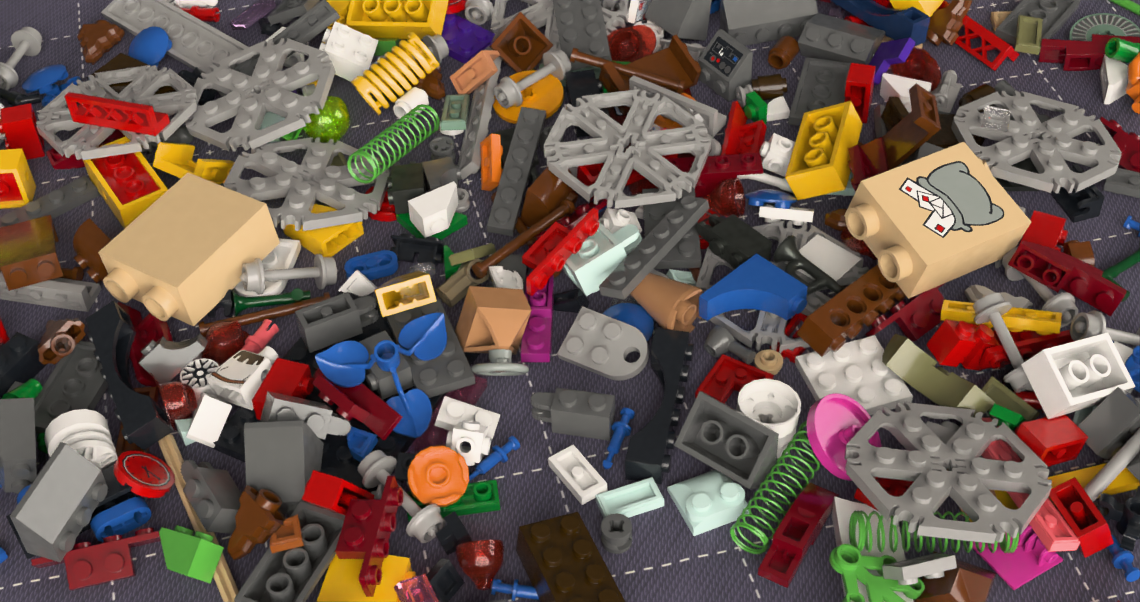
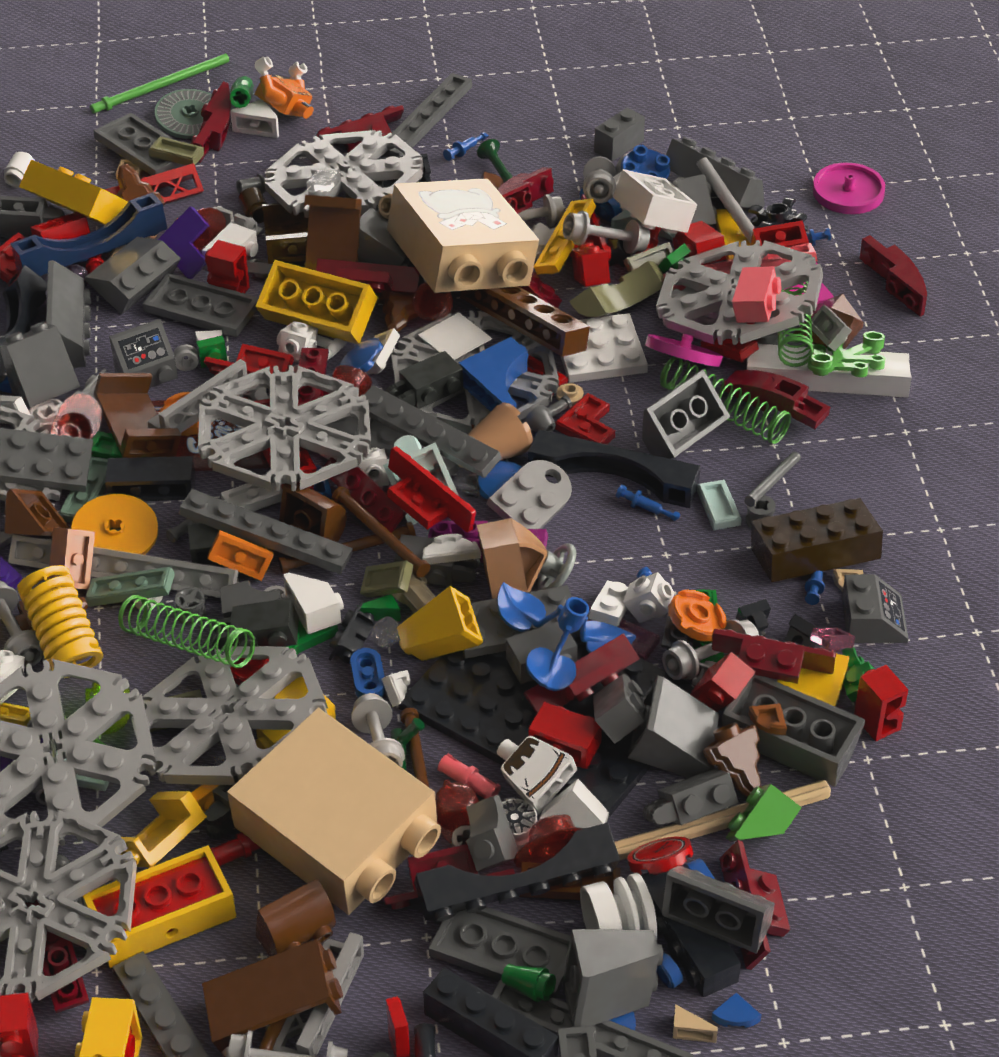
camera: 85 degrees left, 0 degrees up
(60, 339) = (428, 954): reddish brown rock -> none
(116, 114) = (71, 882): red fence -> none
(335, 320) = (476, 686): dark grey hinge -> none
(360, 443) = (642, 677): blue tile -> none
(410, 101) = (102, 628): white brick -> none
(481, 561) = (787, 598): clear red helmet -> none
(509, 93) = (121, 530): light grey piece -> none
(576, 412) = (619, 521): dark grey hinge -> none
(577, 474) = (689, 532): white plate -> none
(628, 71) = (97, 459): reddish brown bar -> none
(662, 535) = (756, 494): none -> bar
(708, 501) = (726, 453): light aqua slope -> none
(769, 86) = (179, 333): dark brown brick -> none
(773, 406) = (647, 384): white wheel -> none
(783, 52) = (123, 317): reddish brown brick -> none
(788, 252) = (454, 347): pearl dark grey piece -> none
(906, 462) = (756, 294): none -> coral brick

